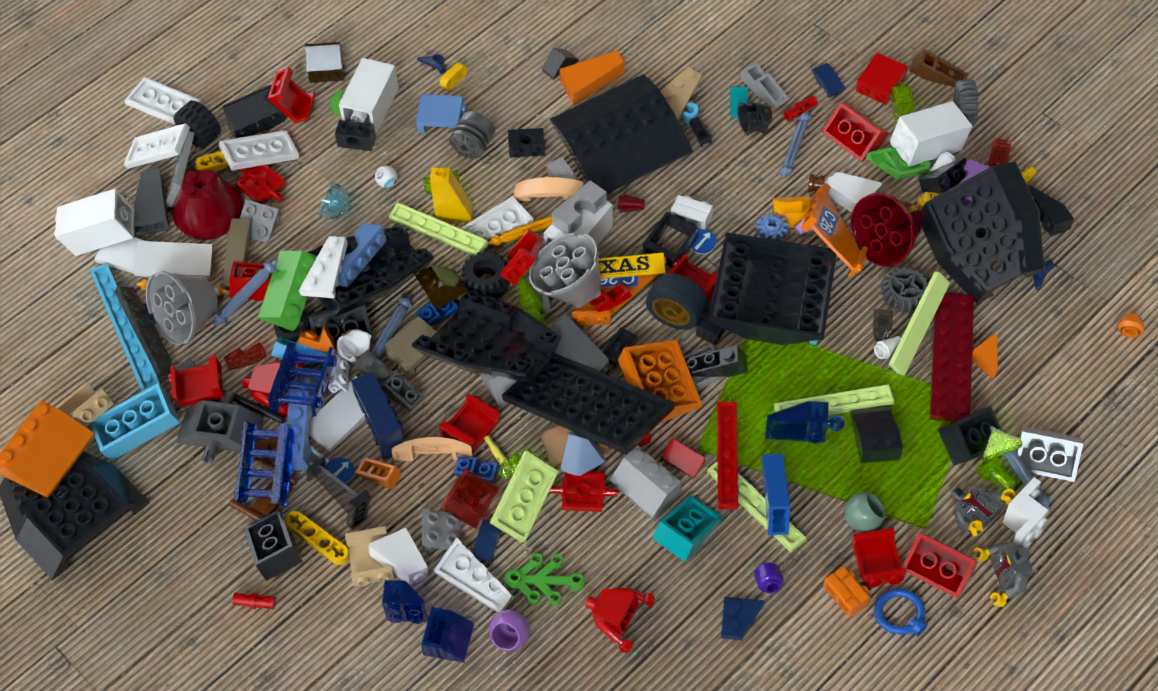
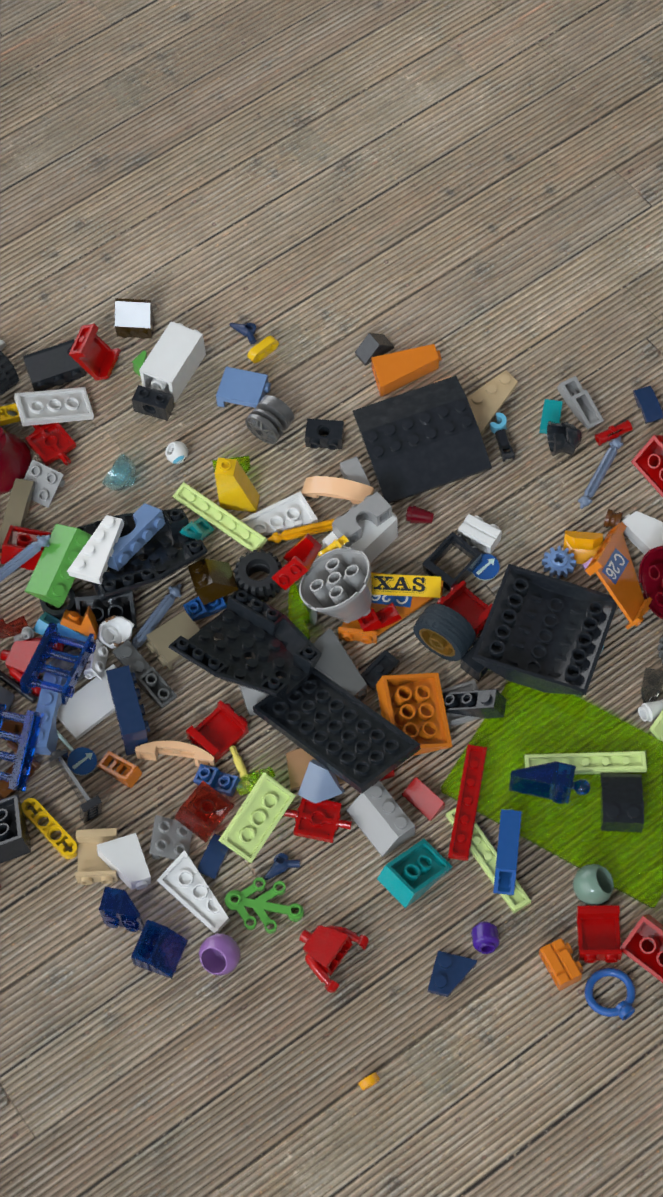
camera: 10 degrees right, 5 degrees up
(265, 357) = (27, 633): none -> light grey arm
(418, 241) = (198, 530): none -> teal slope
(554, 539) = (280, 865): none -> dark blue animal
(558, 233) = (337, 543): none -> yellow arm

